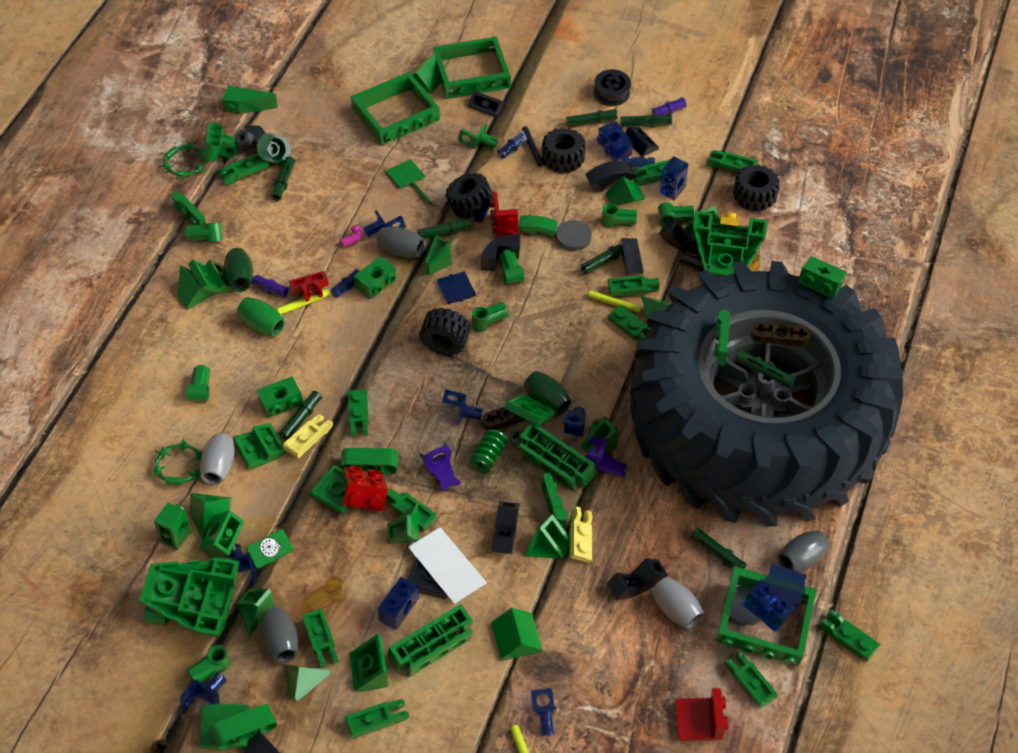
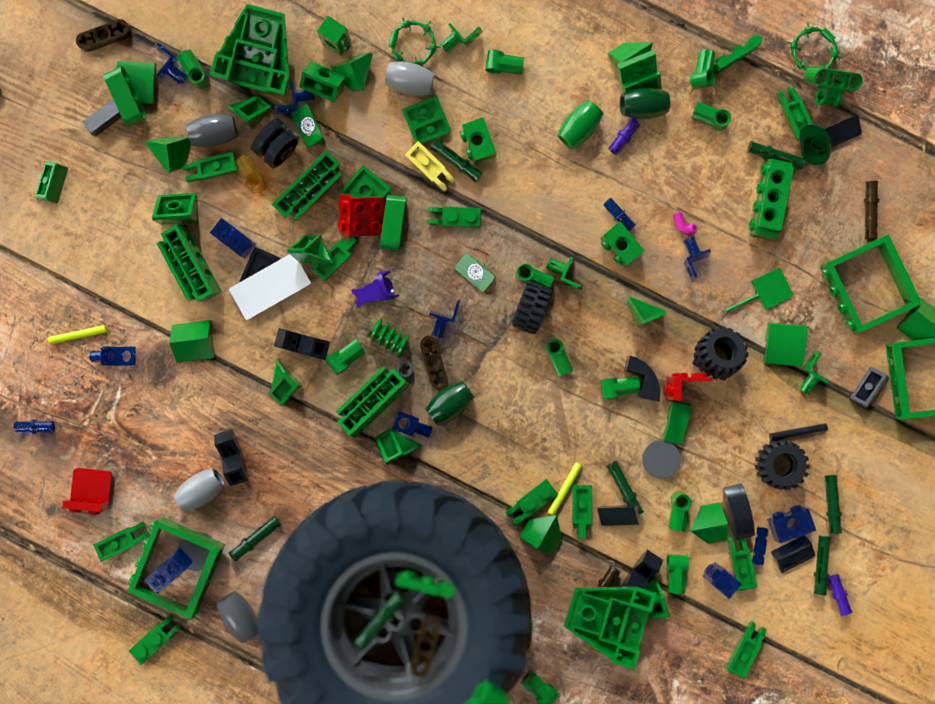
camera: 95 degrees right, 35 degrees up
(172, 424) = (452, 40): none -> green bracket
(245, 100) = (899, 117): green slope -> none
(248, 138) = (836, 114): dark grey bush -> none
(249, 223) = (708, 115): none -> green piece
(292, 567) = (275, 143): none -> black wheel
(299, 303) = (601, 169): neon yellow bar -> none
(309, 285) = (619, 175): red plate -> none
(324, 175) = (779, 192): none -> green brick
(328, 113) = (871, 215): none -> dark brown pin
(334, 523) = (305, 183): none -> green brick
(375, 718) = (126, 210): green hinge -> none
(400, 242) = (664, 273): dark grey piece -> none
(404, 317) = (564, 270): none -> green bracket
(412, 343) = (534, 276): none -> green piece
(413, 389) = (474, 272): none -> slope
(451, 227) = (683, 322): dark green pin -> none
(455, 158) = (785, 344): none -> green slope
(456, 287) = (604, 327): clear blue piece -> none
(512, 145) = (799, 410): clear blue axle -> none
(513, 488) = (342, 359): none -> green piece
(530, 409) = (423, 381): green plate -> none
(553, 502) = (325, 392): green hinge -> none
(581, 536) = (286, 413): light yellow hinge -> none
(602, 461) = (365, 443): dark purple hair -> none
(611, 94) = (889, 539): black wheel -> none
(729, 218) = (652, 629): yellow hinge -> none
(756, 187) = (713, 680): black tyre -> none
(787, 583) = (196, 591): clear blue piece -> none

